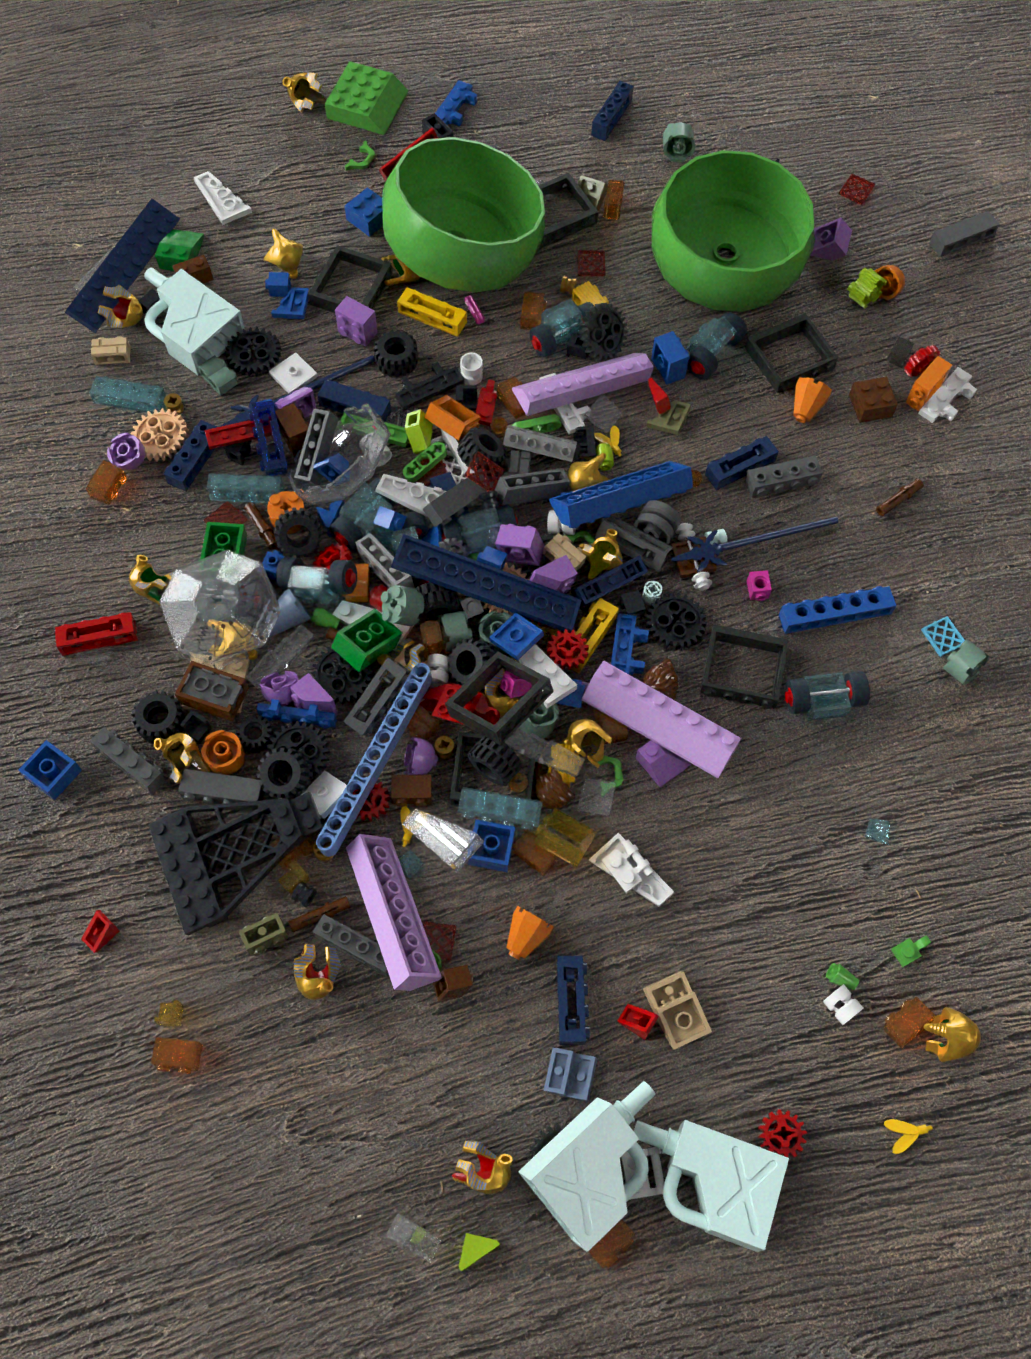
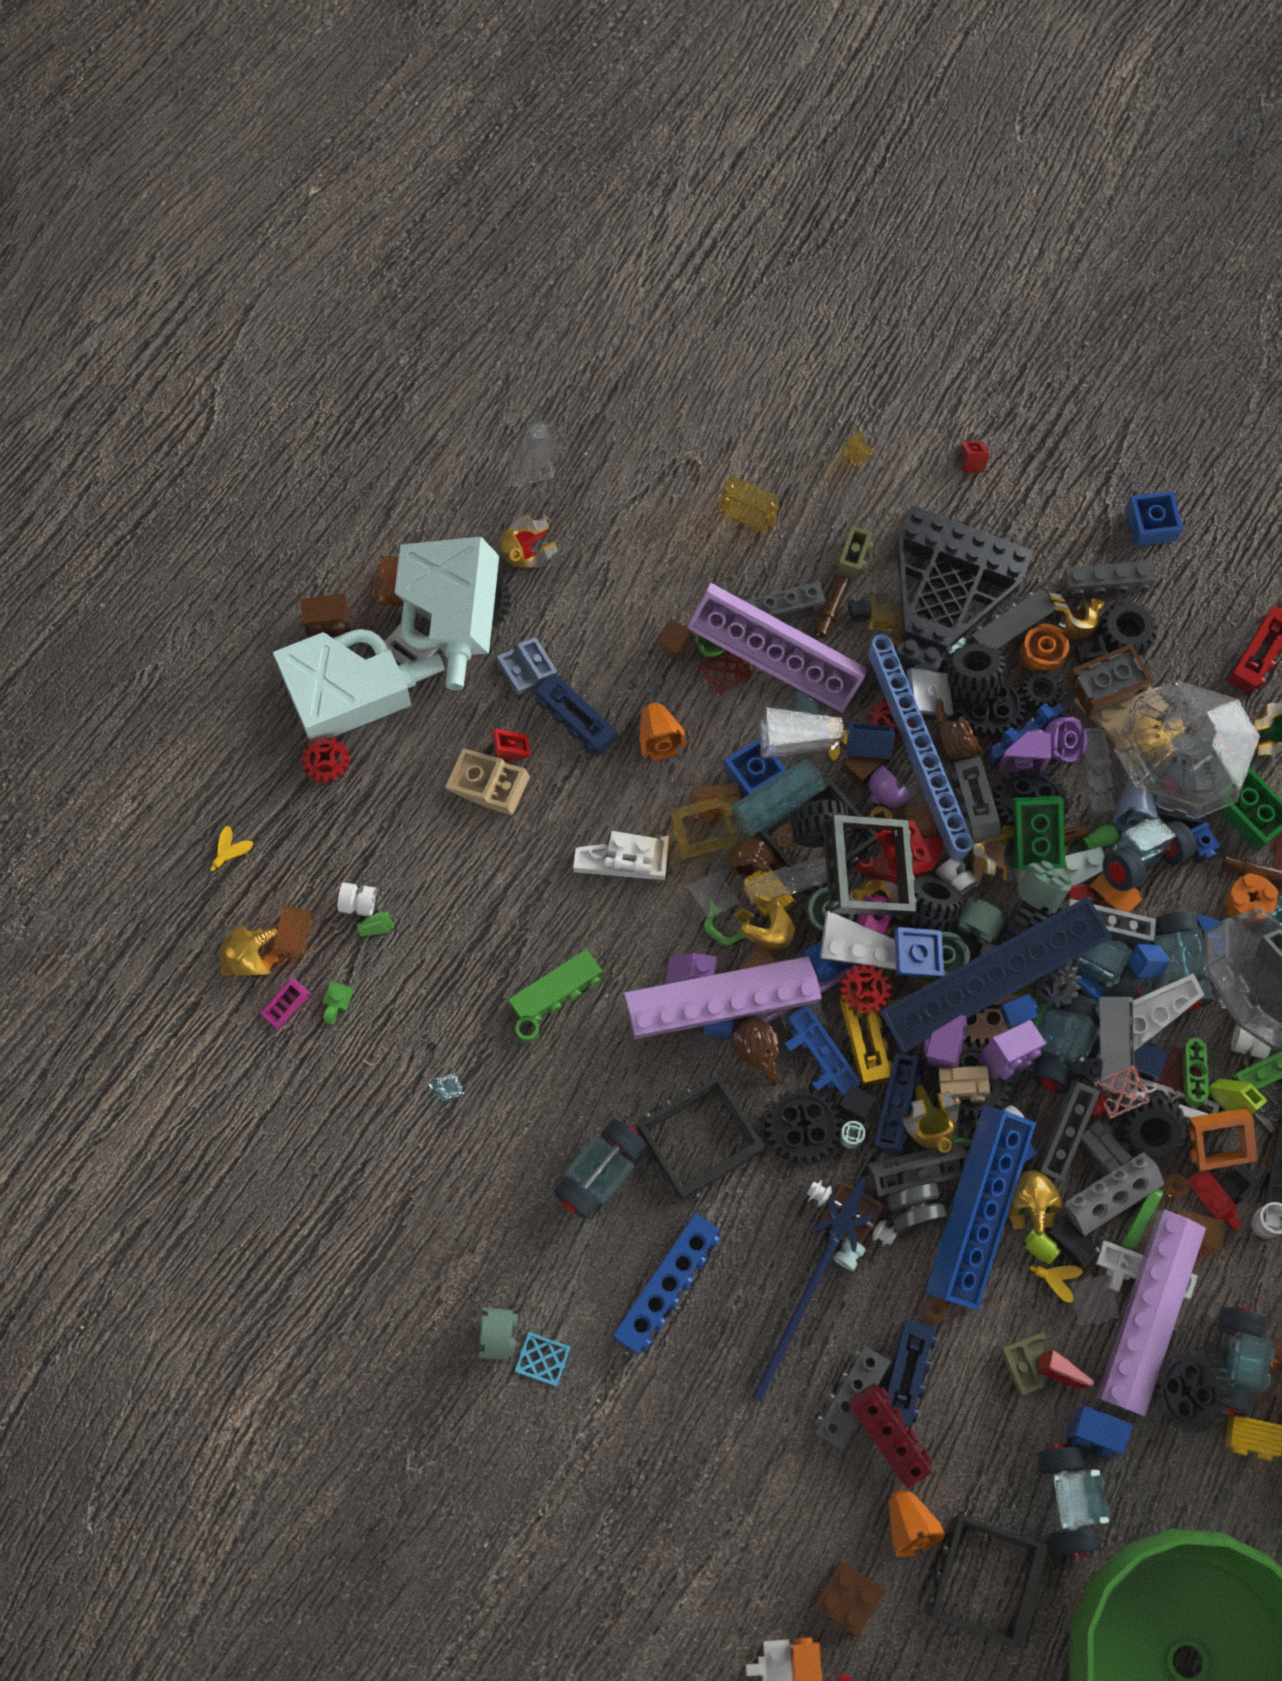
camera: 135 degrees right, 5 degrees up
(176, 1054) = (822, 430): clear orange brick -> none
(294, 1040) = (749, 504): none -> clear yellow window
(301, 547) = (1213, 880): black tyre -> none
(311, 983) = (785, 554): pearl gold piece -> none
(332, 466) = (1261, 971): blue slope -> none
(332, 553) = (1158, 892): red gear -> none
(345, 749) = (955, 737): none -> reddish brown hair
(401, 791) = (870, 740): none -> dark blue brick
(431, 638) = (992, 891): clear orange brick -> none
(474, 1249) = (484, 497): lime slope -> none
(692, 1252) = (326, 615): none -> reddish brown brick
(755, 579) = (766, 1249): dark pink brick -> none
(758, 827) = (553, 990): none -> bright green hinge
(783, 437) = (891, 1435): none -> dark red brick
(905, 492) = (712, 1522): reddish brown pin -> none
(934, 984) = (279, 997): none -> dark pink slope

